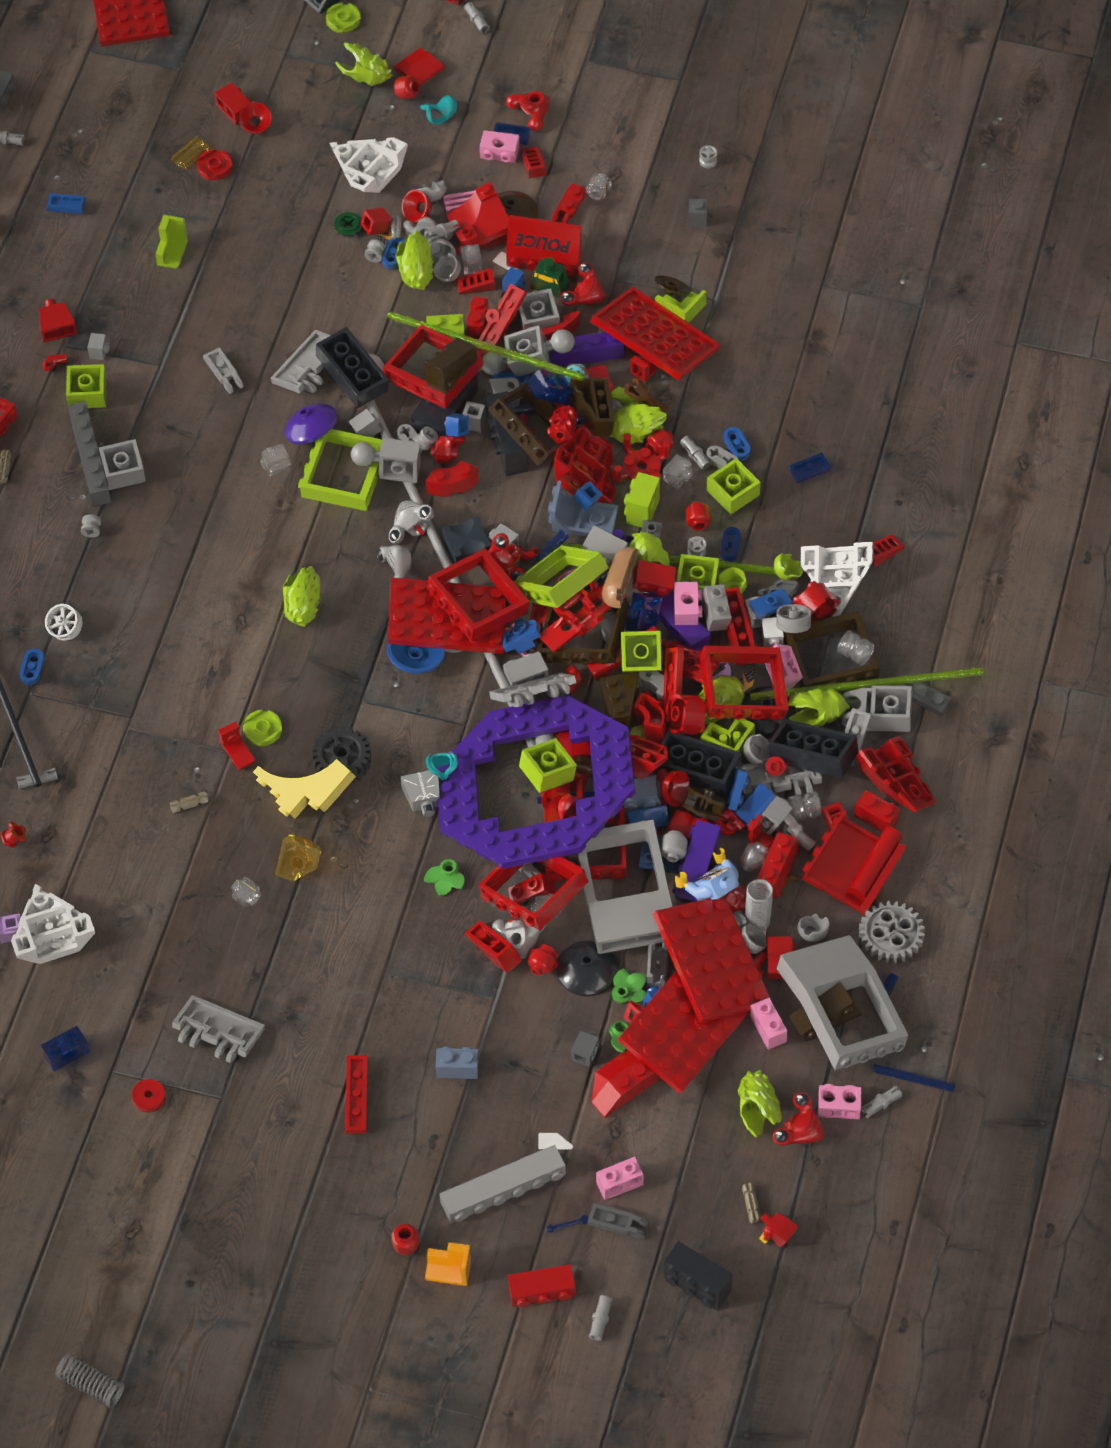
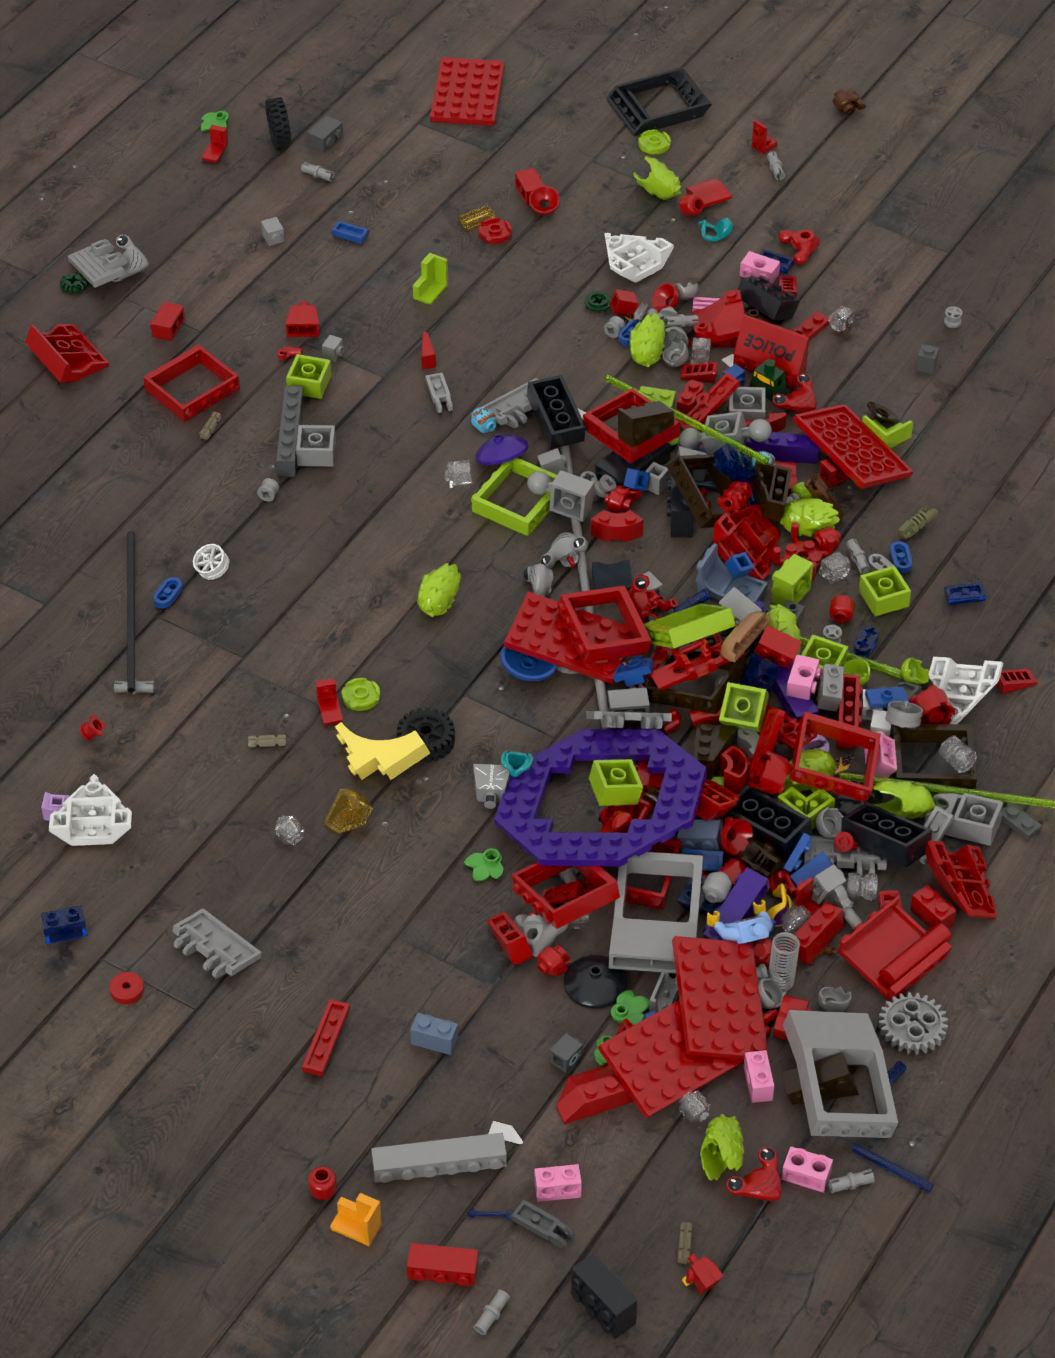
camera: 15 degrees right, 10 degrees down
(197, 328) = (428, 354): none -> red slope
(279, 391) = (483, 419): none -> medium azure head
(520, 181) = (768, 298): none -> black brick
(719, 1069) = (694, 1106): none -> clear head
(735, 853) = (778, 910): none -> yellow piece
(741, 400) = (917, 522): none -> olive hinge

